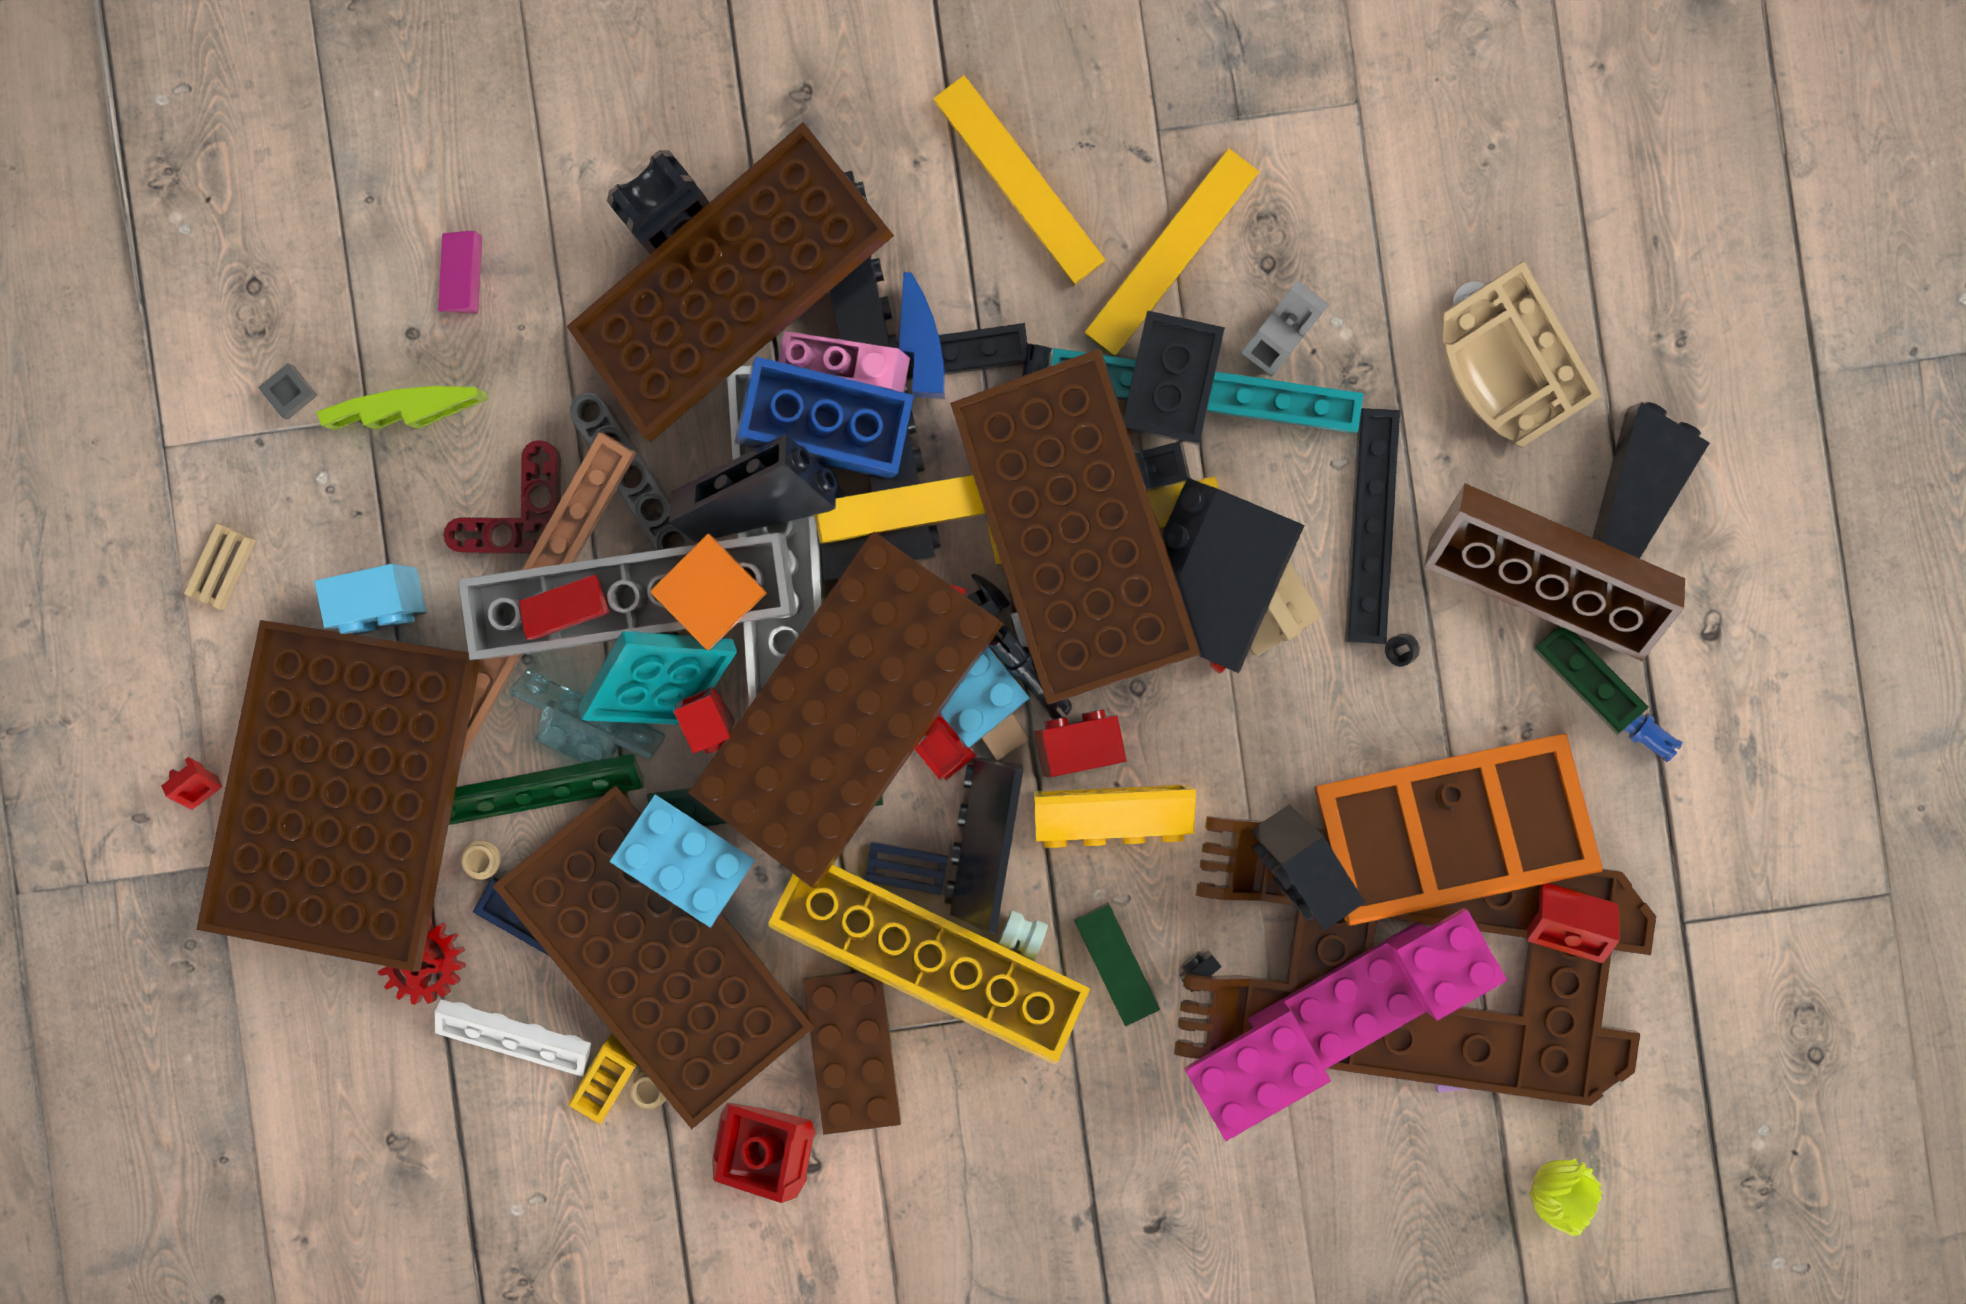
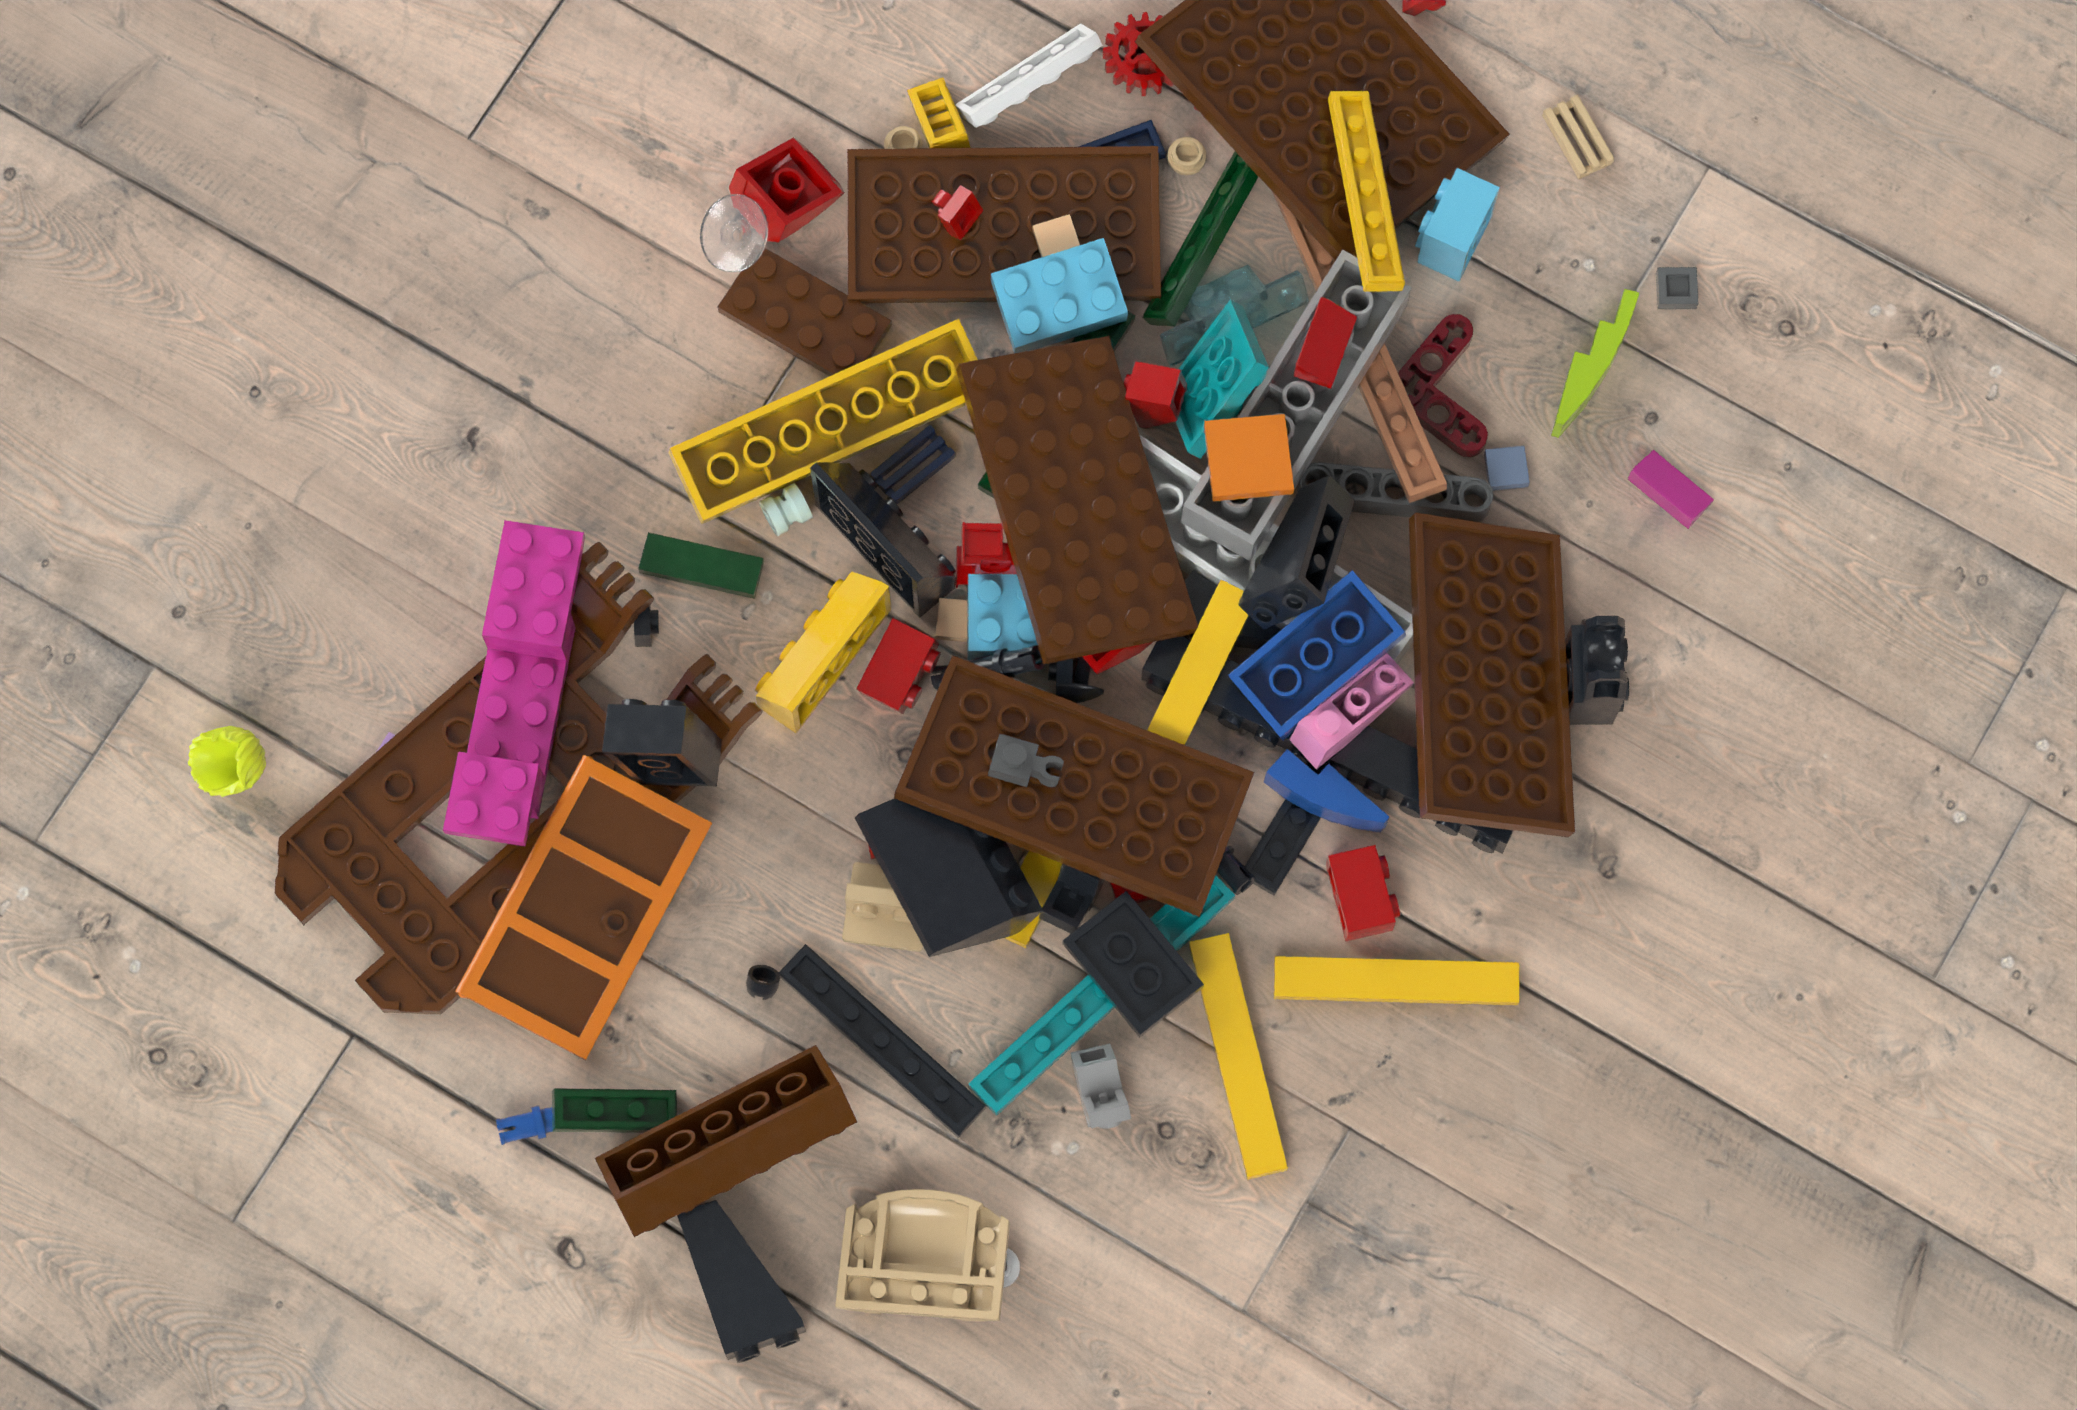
camera: 130 degrees right, 15 degrees down
(403, 682) = (1366, 191): none -> yellow tile
(543, 410) = (1506, 468): none -> sand blue tile
(635, 902) = (1055, 235): none -> light nougat tile
(676, 998) = (957, 211): none -> red tile
(837, 1172) = (721, 233): none -> clear dish
(973, 255) = (1361, 892): none -> red brick
(1097, 581) = (1017, 762): none -> dark grey plate
(1575, 923) = (434, 936): red panel -> none

